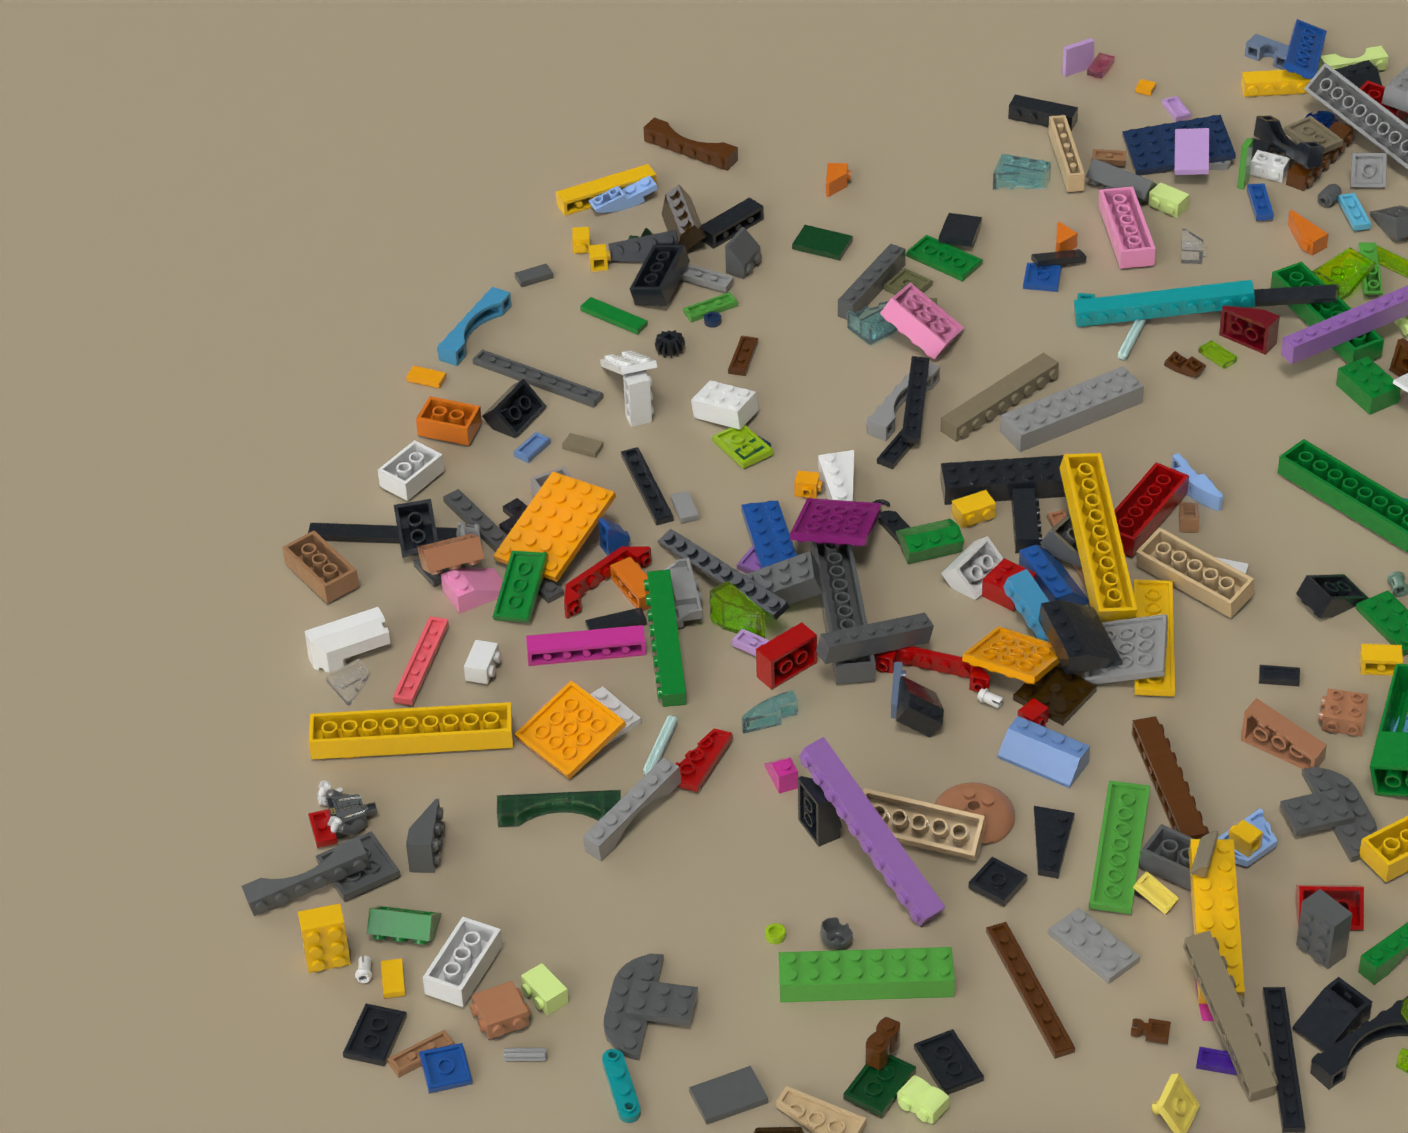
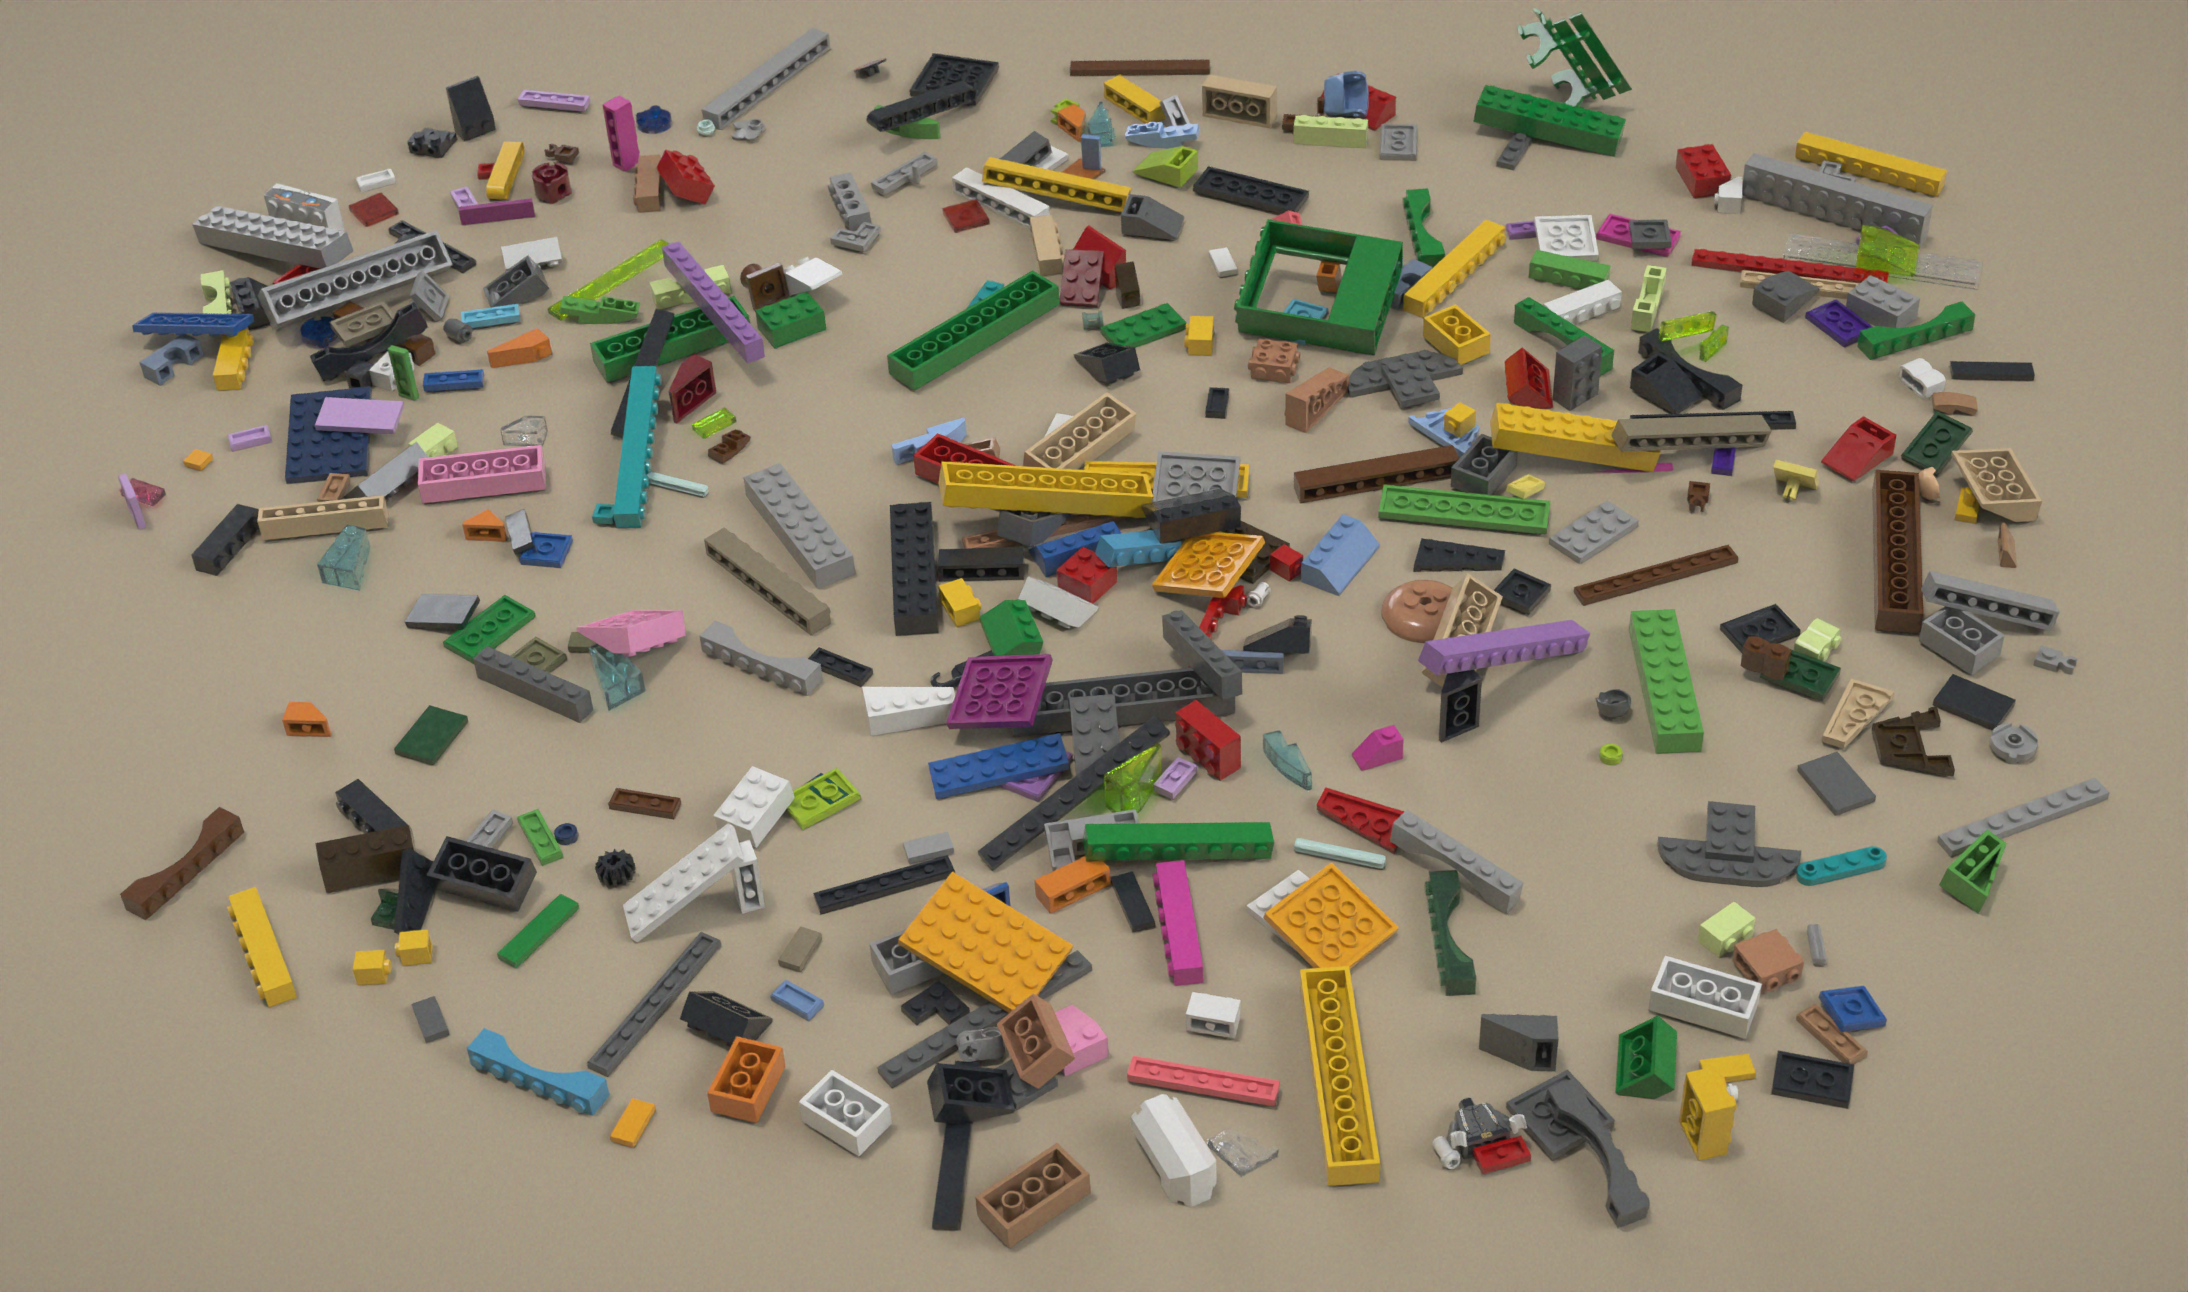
camera: 90 degrees left, 0 degrees up
(520, 586) = (1083, 981): green tile -> none
(598, 573) = (1099, 941): red slope -> none
(618, 199) = (283, 924): light blue slope -> none
(742, 254) = (454, 801): dark grey slope -> none
(807, 484) = (904, 736): light orange brick -> none
(915, 400) = (776, 637): black plate -> none
(1204, 854) = (1525, 414): dark tan slope -> none
(1346, 271) = (607, 316): clear neon green slope -> none

